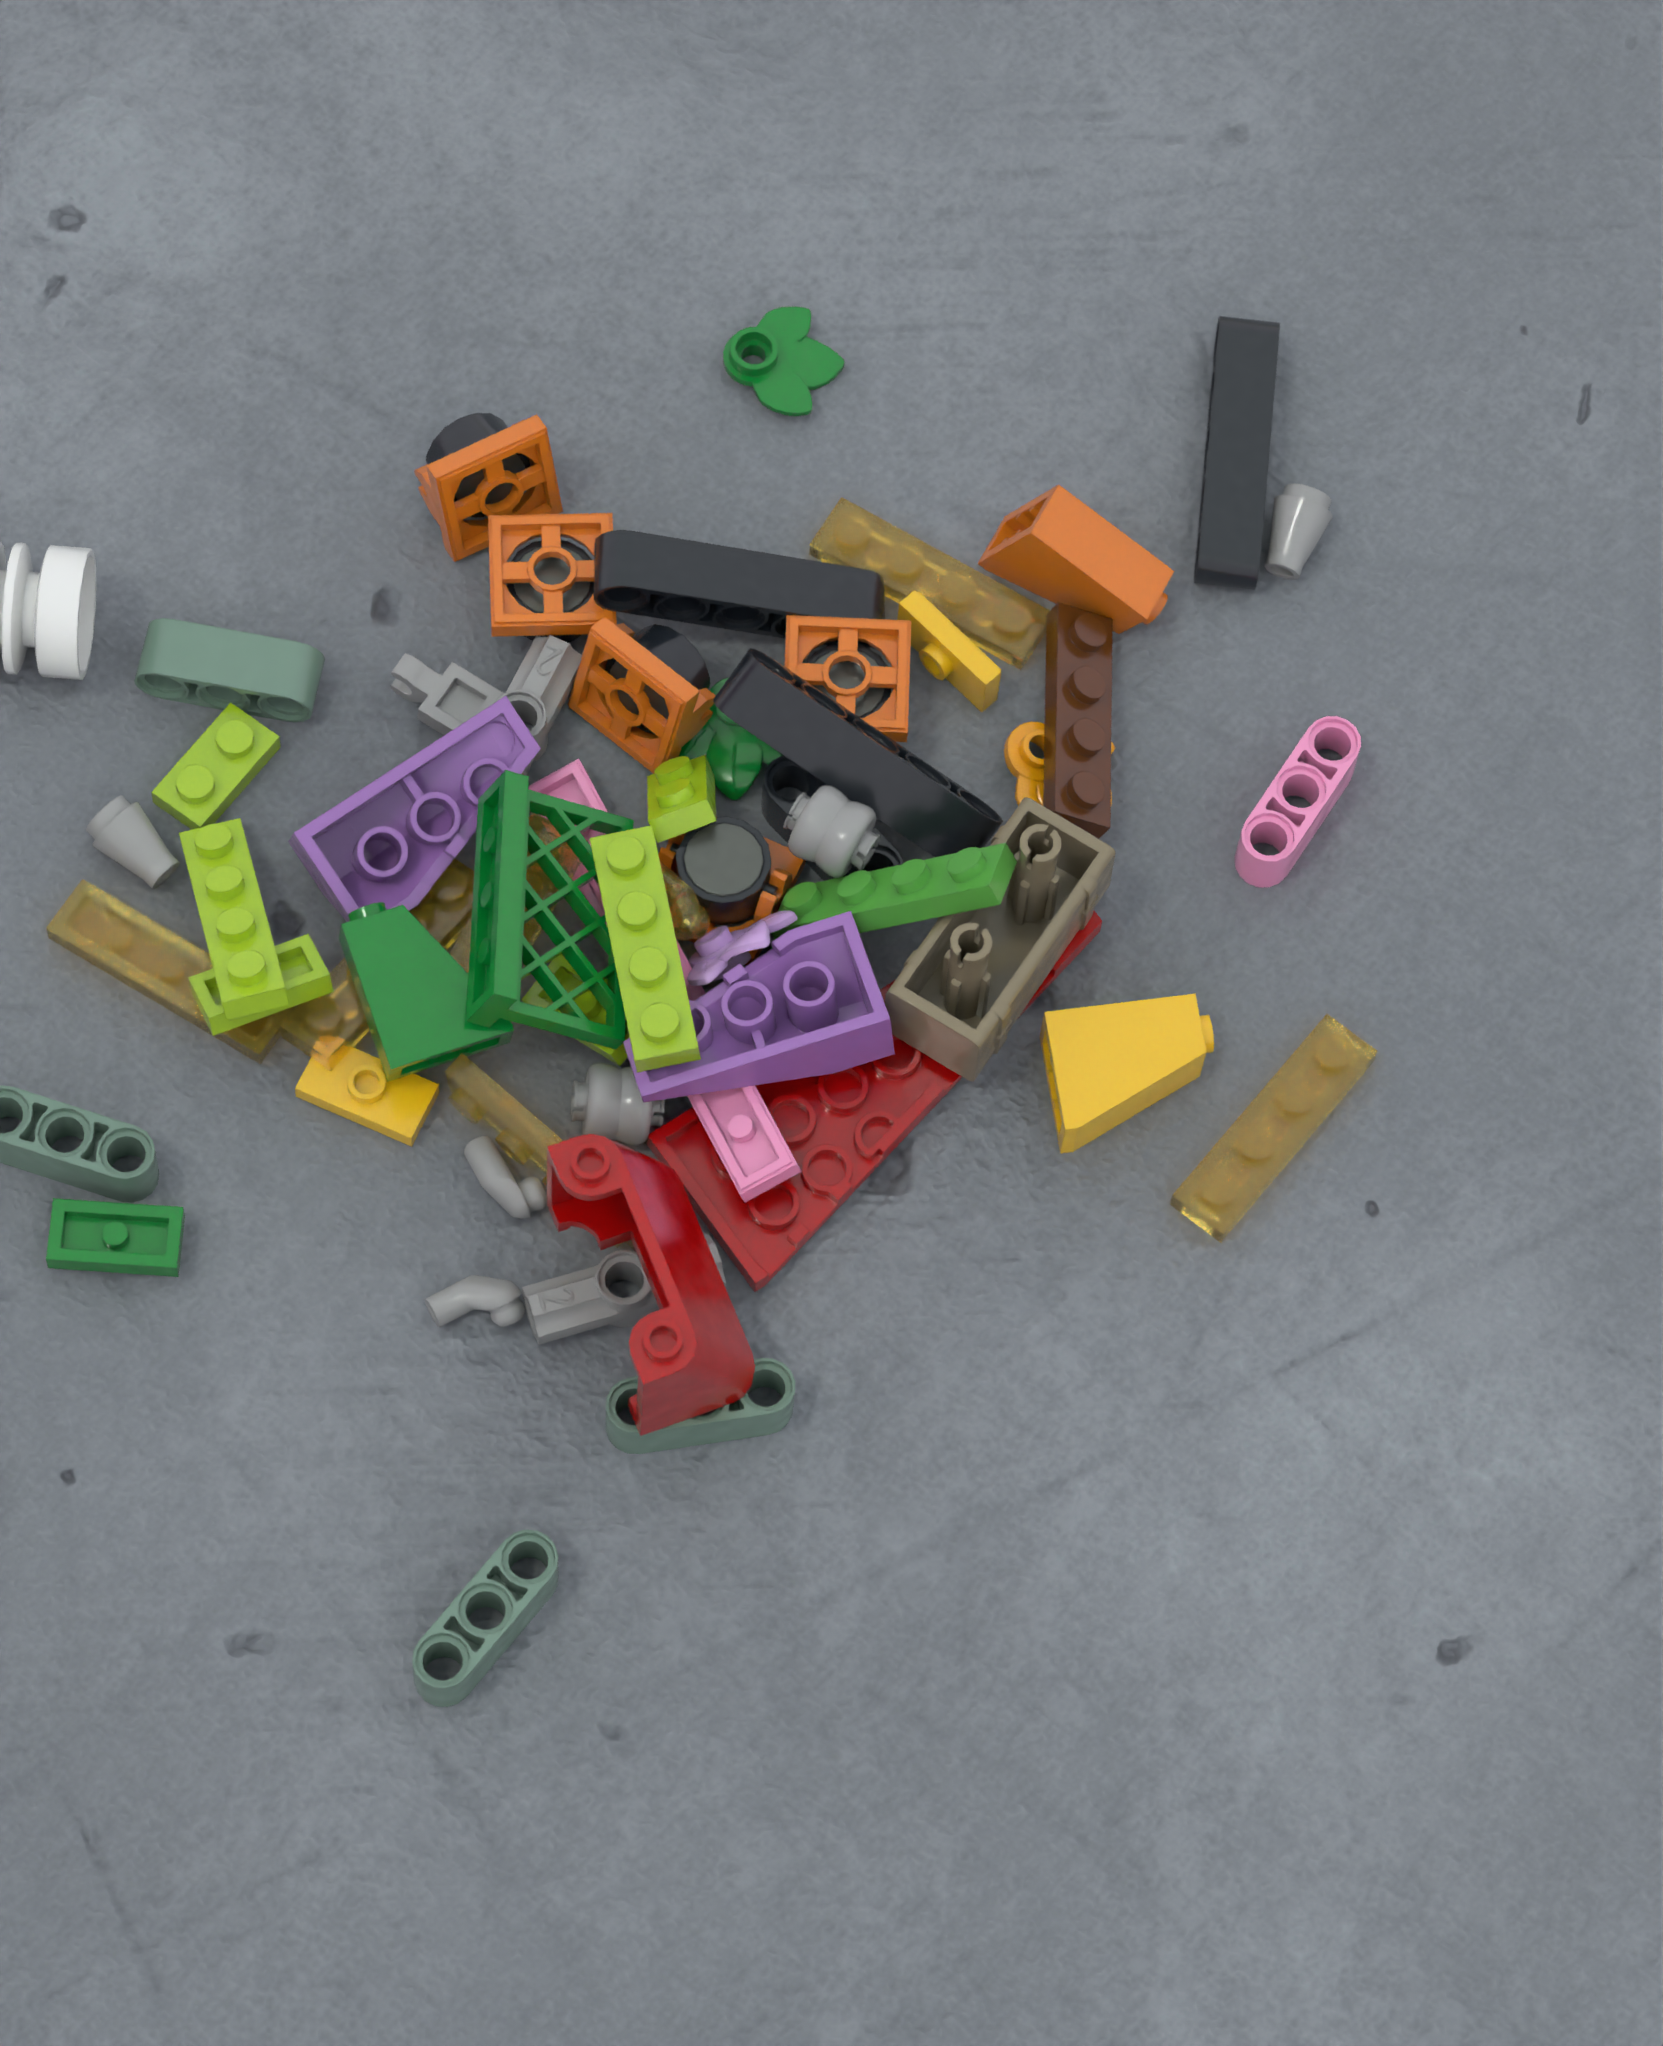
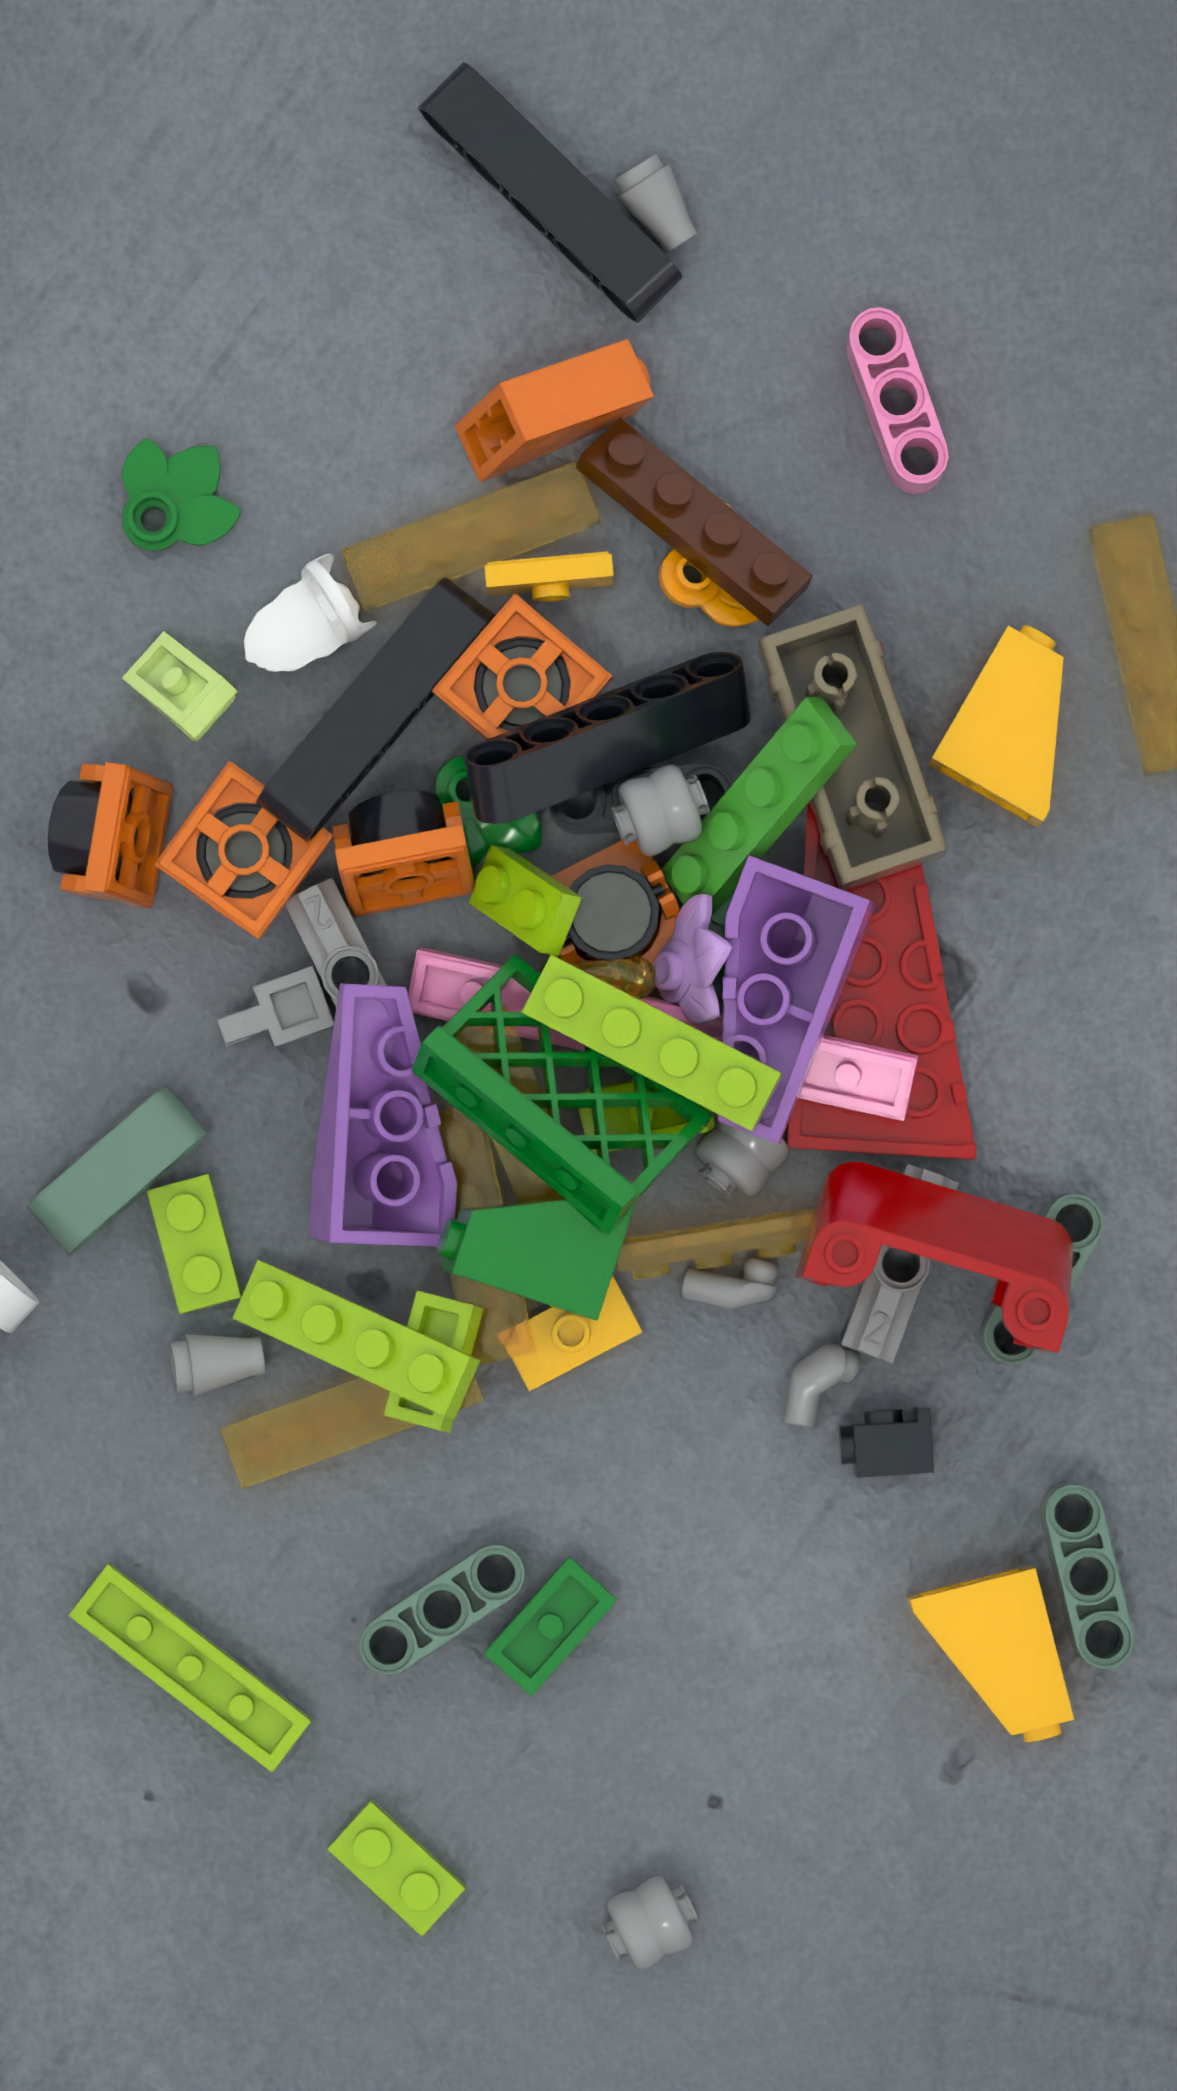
camera: 45 degrees left, 20 degrees up
(373, 1594) = (1002, 1646): none -> yellow slope
(471, 1387) = (888, 1444): none -> black brick
(641, 465) = (180, 686): none -> yellowish green slope
(766, 508) = (305, 621): none -> white piece

